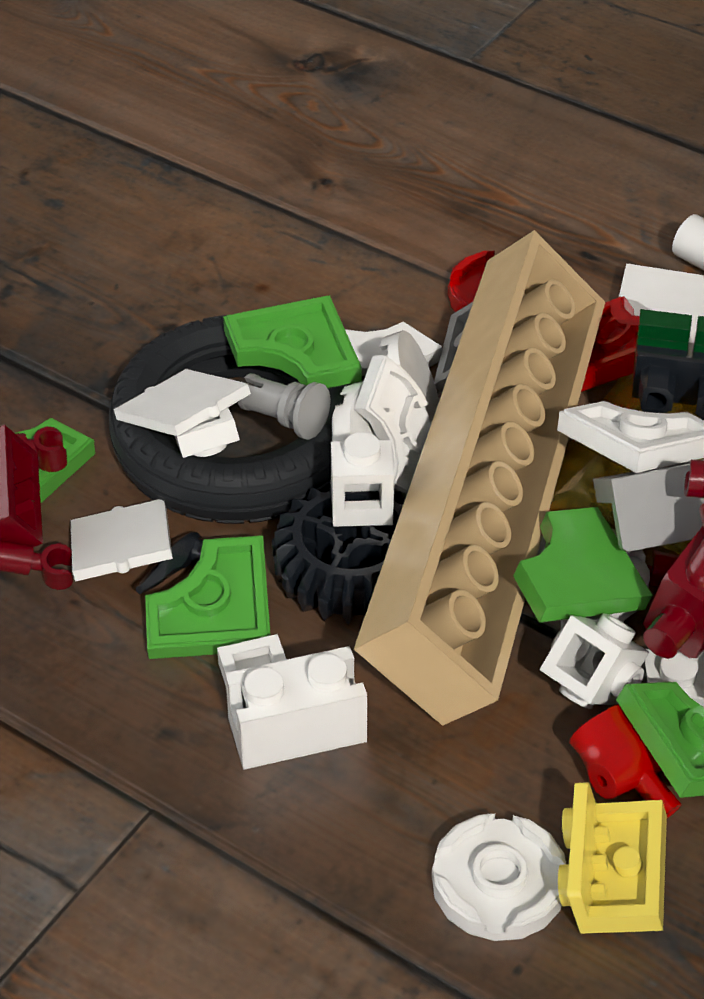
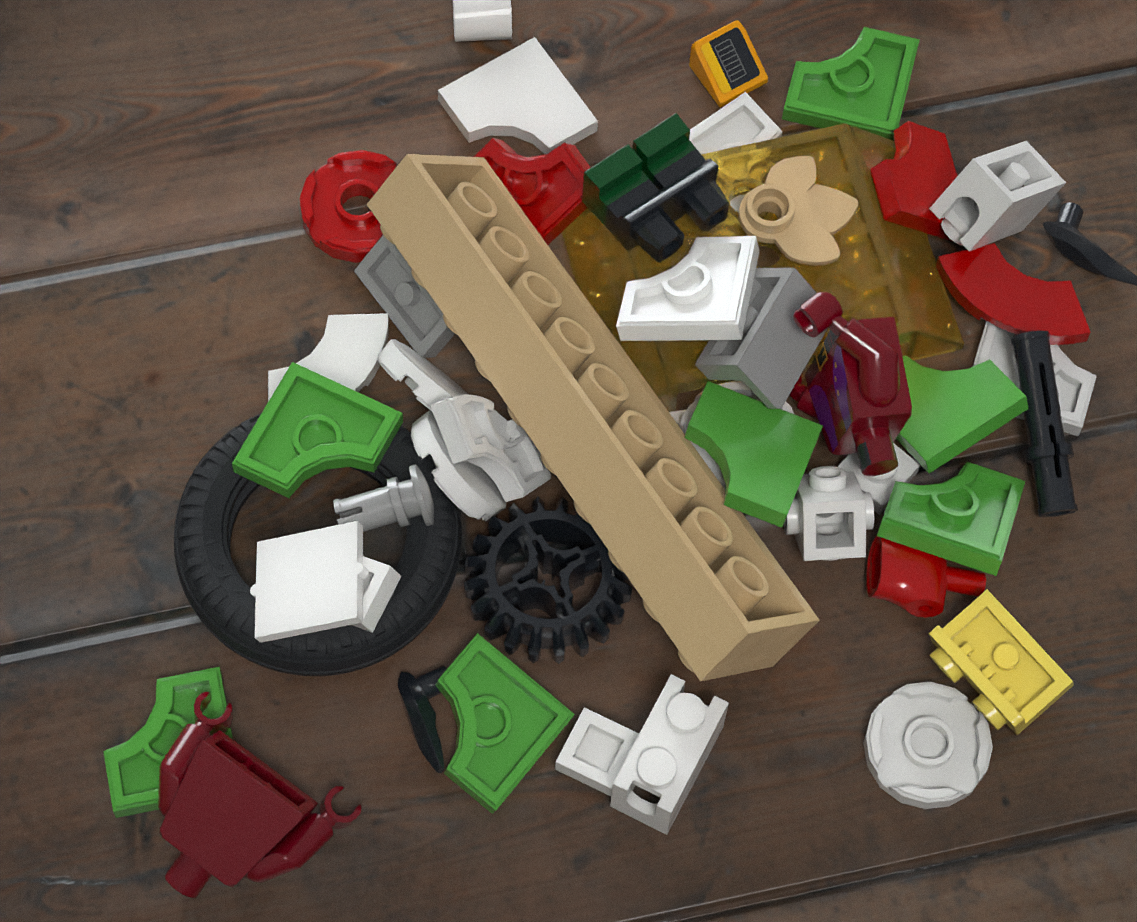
camera: 50 degrees left, 20 degrees up
(120, 539) = (363, 738): white piece -> none
(358, 466) = (530, 525): white brick -> none

